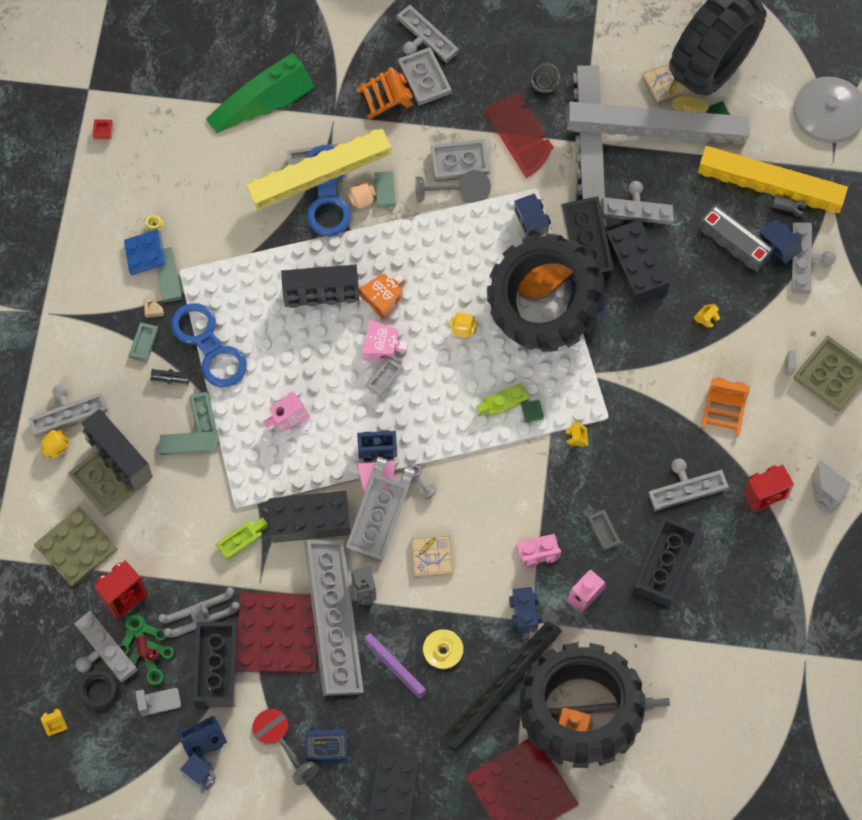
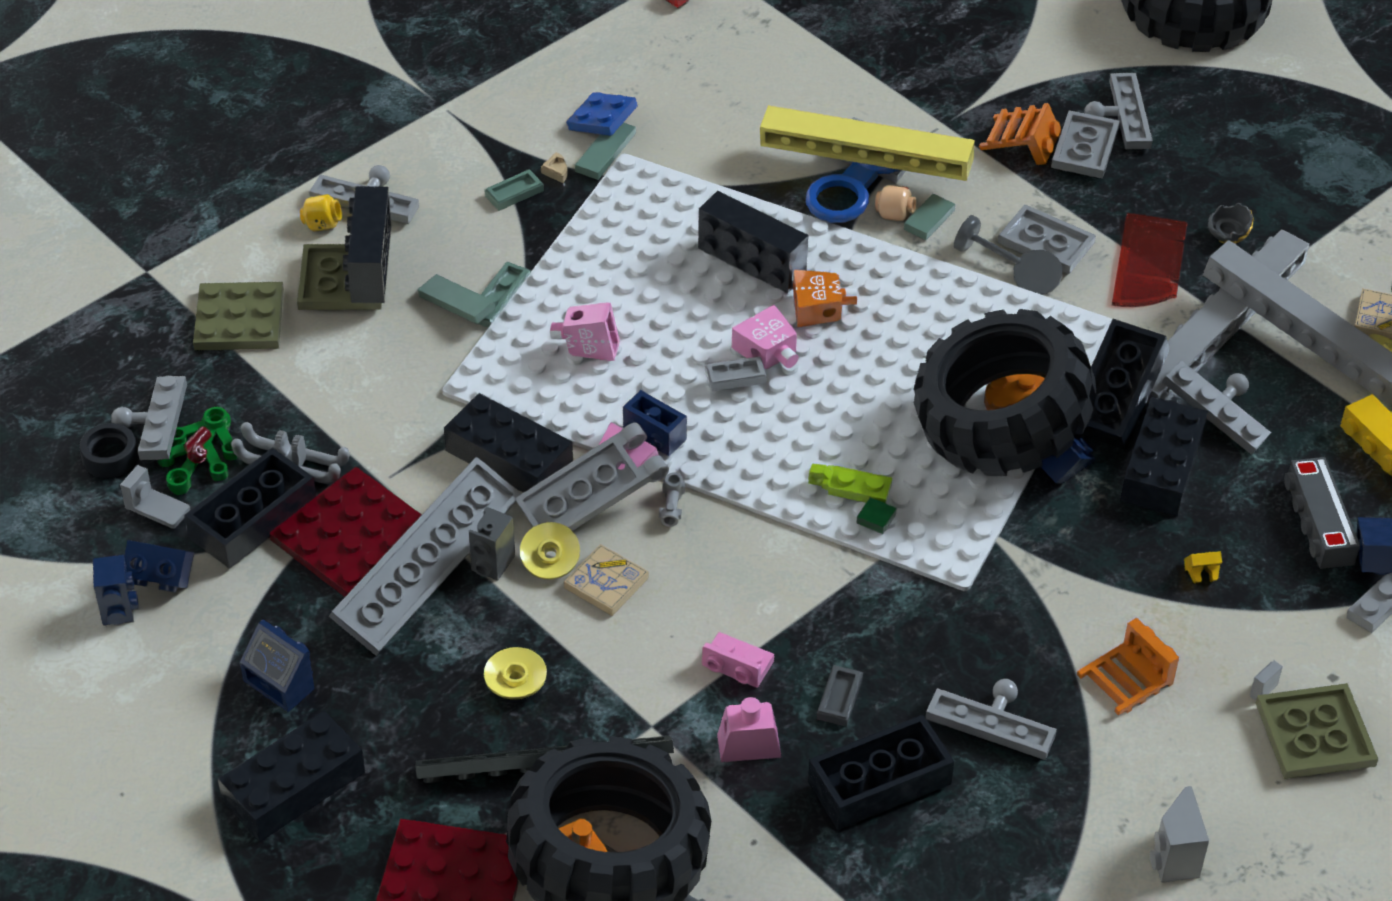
camera: 40 degrees right, 20 degrees down
(53, 722) = (31, 446): yellow tile -> none
(120, 589) = (229, 365): red brick -> none
(151, 220) = (643, 97): light yellow plate -> none
(170, 376) = (506, 232): black pin -> none
(209, 345) = (576, 229): blue bar -> none
(241, 538) = (412, 418): lime hinge -> none
(268, 91) = (896, 57): green wedge -> none
(271, 728) = (236, 615): piece -> none
(395, 666) = (442, 652): medium lavender tile -> none
(401, 560) = (546, 538): none -> light yellow dish
(463, 324) = (880, 380): yellow head -> none
(525, 614) = (652, 701): dark blue brick -> none
(531, 215) = (1081, 319): dark blue brick -> none
(579, 435) = (909, 577): yellow tile -> none
(768, 487) = (1095, 783): red brick -> none

